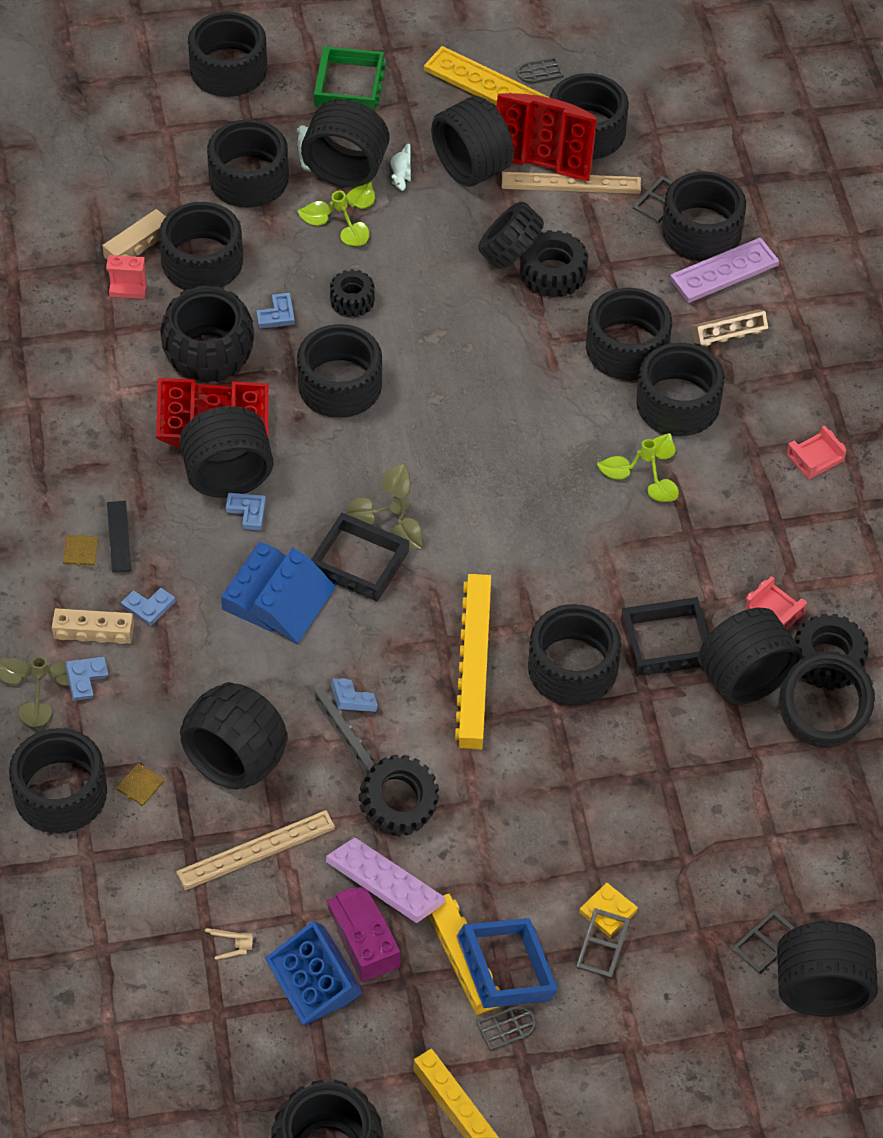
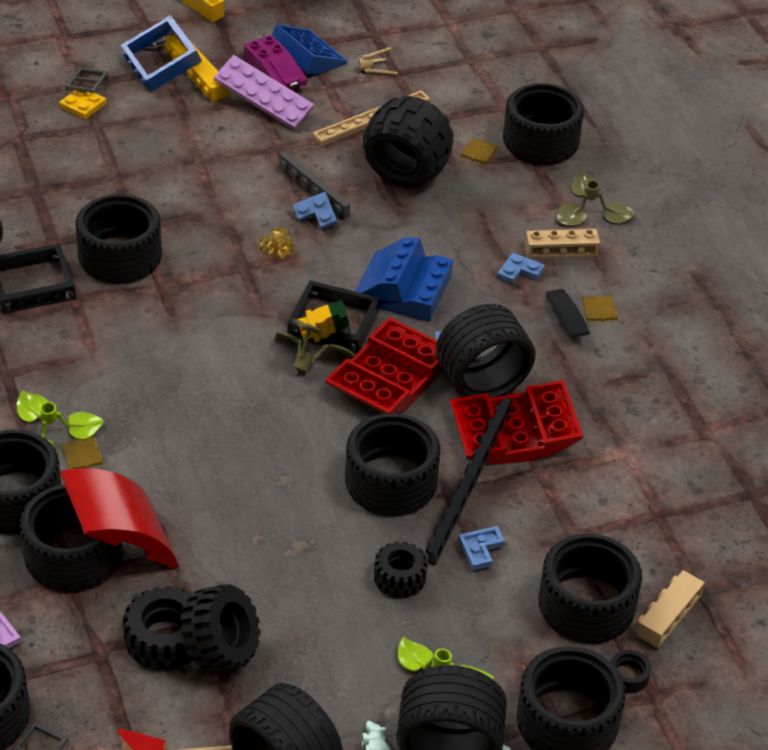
camera: 170 degrees right, 10 degrees down
(81, 672) = (555, 208): medium blue plate -> none
(127, 276) = (662, 547): coral panel -> none
(186, 191) = (638, 660): none -> black tyre
(201, 312) = (553, 459): black tyre -> none
(273, 353) = (467, 484): none -> black plate
(320, 481) = (389, 369): none -> red slope
(374, 512) = (328, 318): none -> yellow hips
(382, 814) = (262, 135): black tyre -> none
(399, 660) = (278, 241): none -> clear yellow animal
(474, 662) = (211, 249): yellow brick -> none
(584, 318) = (117, 511): none -> red slope
(617, 441) = (82, 453): none -> clear yellow piece

